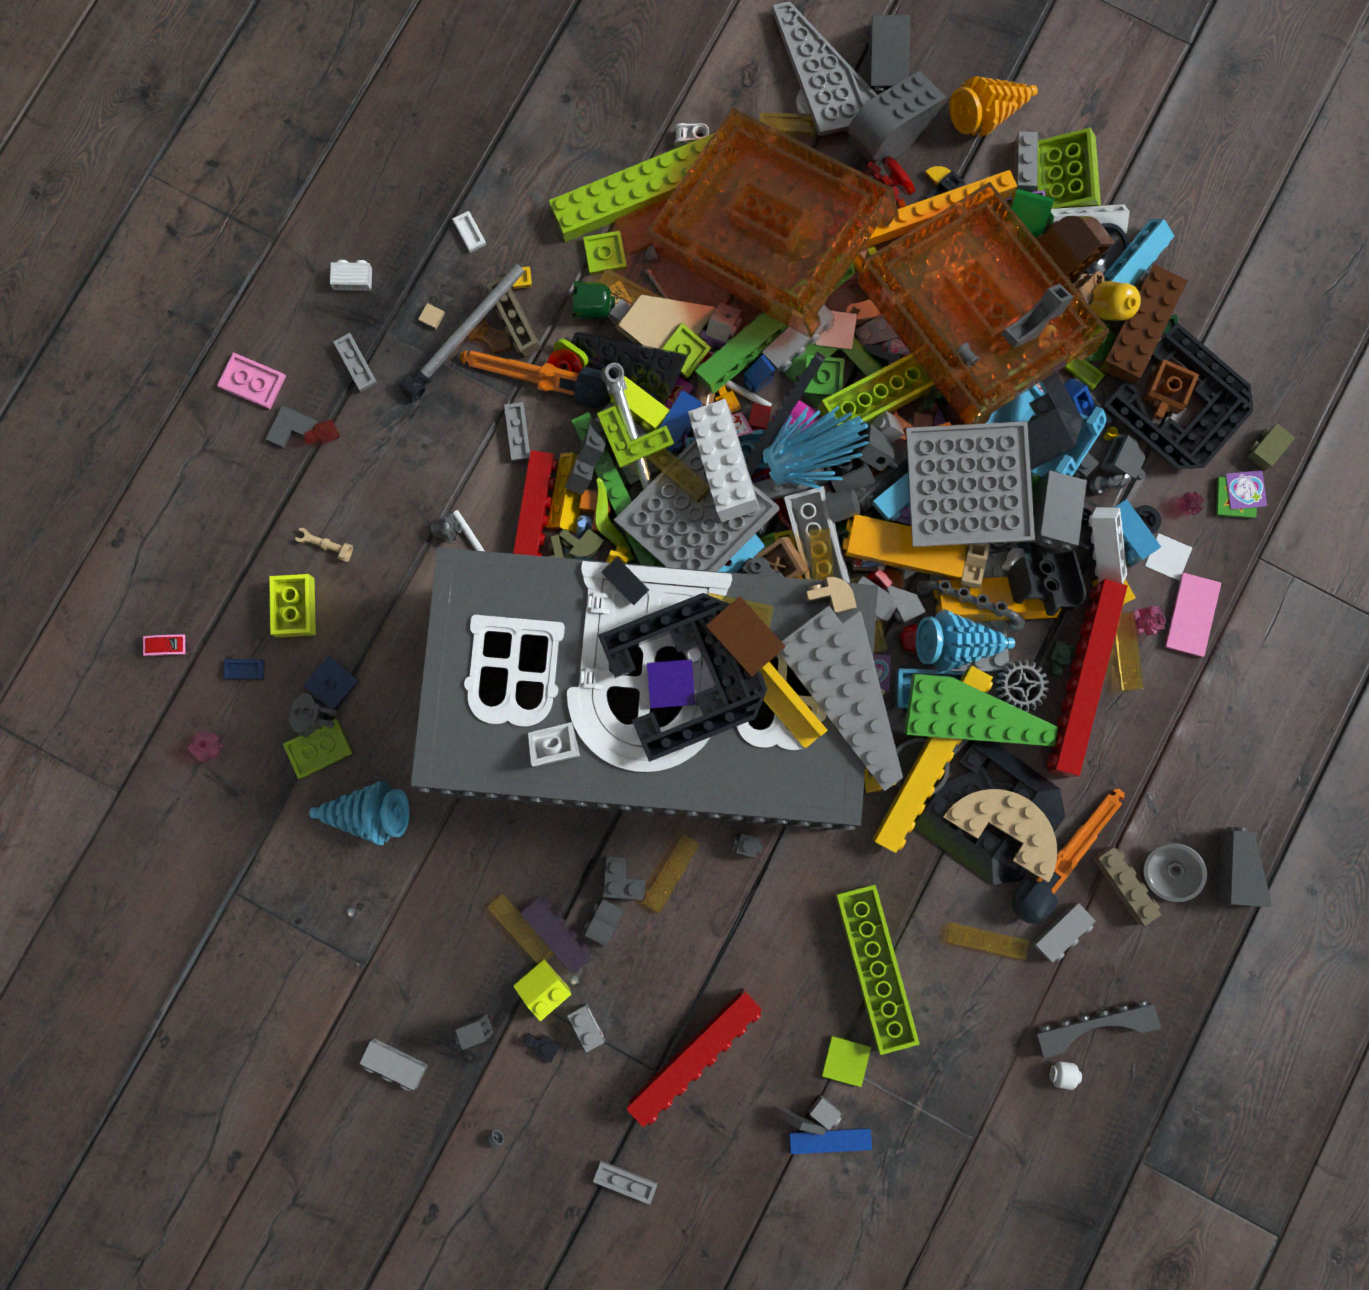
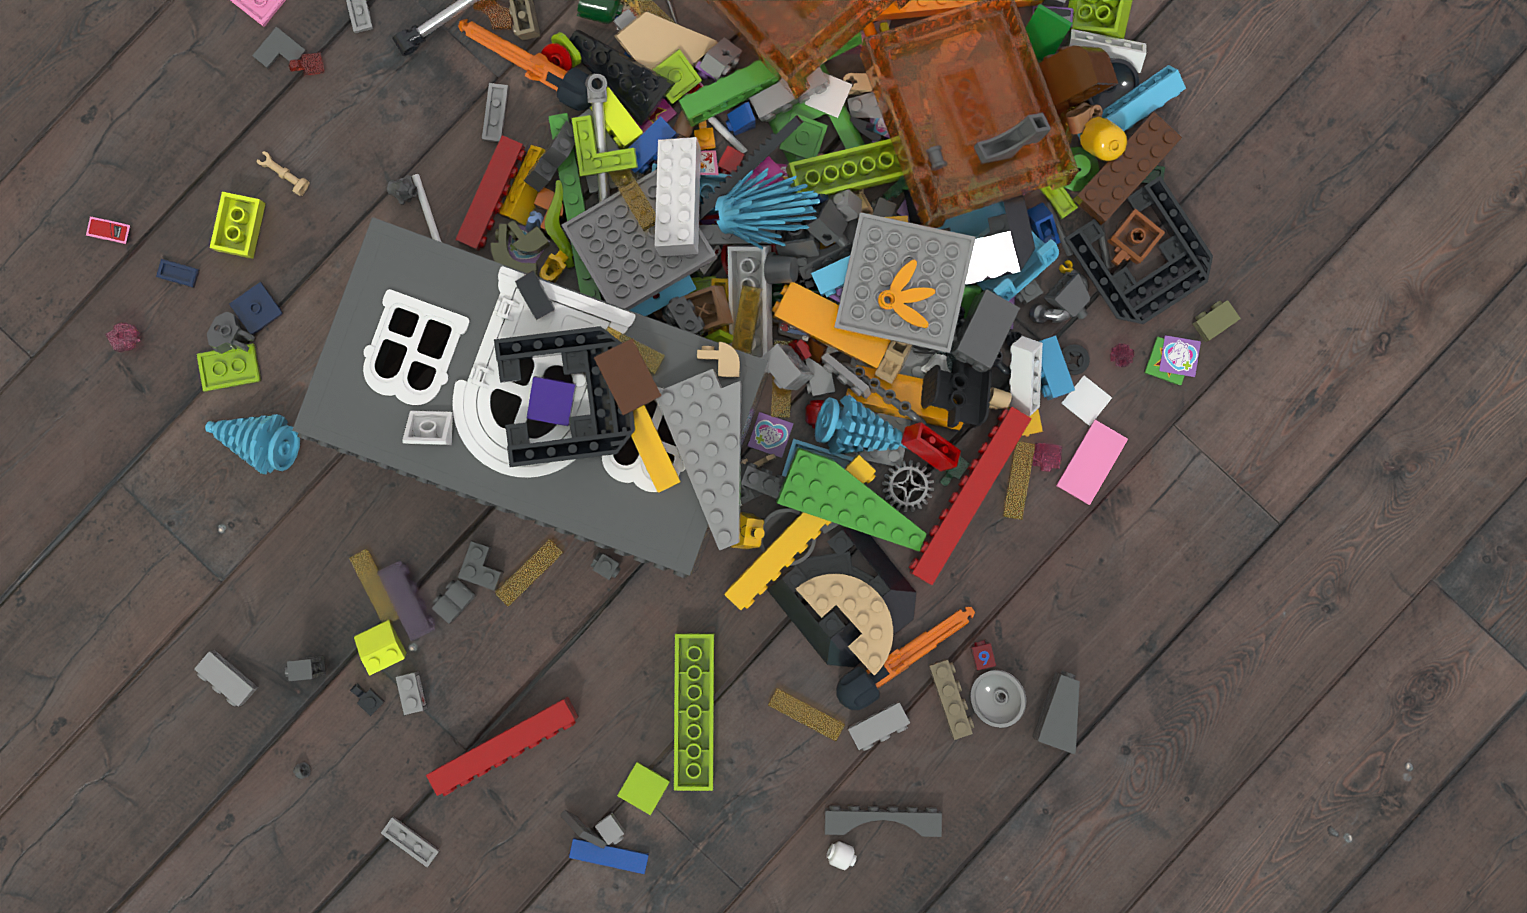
camera: 15 degrees right, 5 degrees up
(933, 593) = (845, 376): none -> light grey plate
(969, 500) = (899, 297): none -> light orange plant
(1035, 640) = (930, 446): none -> red brick
(1090, 575) = (999, 399): none -> tan piece
(1145, 833) = (982, 655): none -> dark red brick

